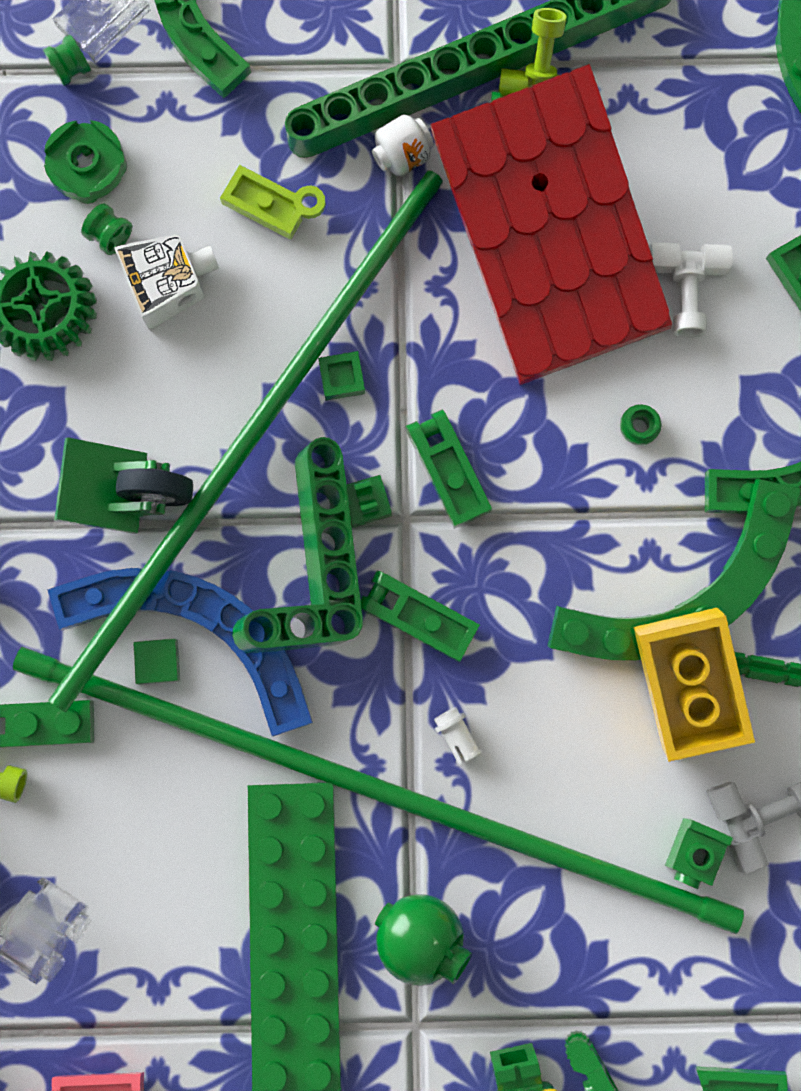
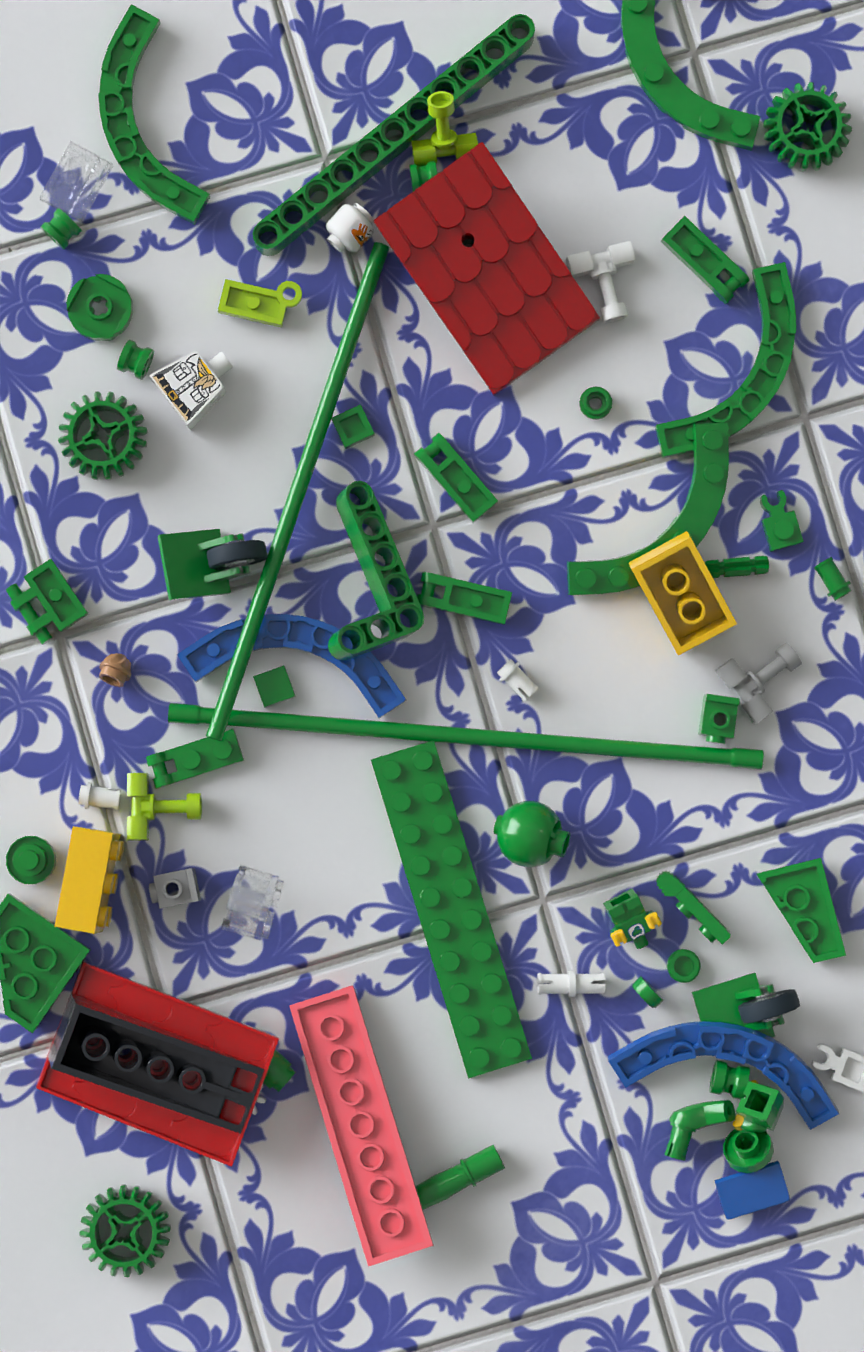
camera: 15 degrees left, 5 degrees up
(368, 501) = (401, 519): green tile -> none

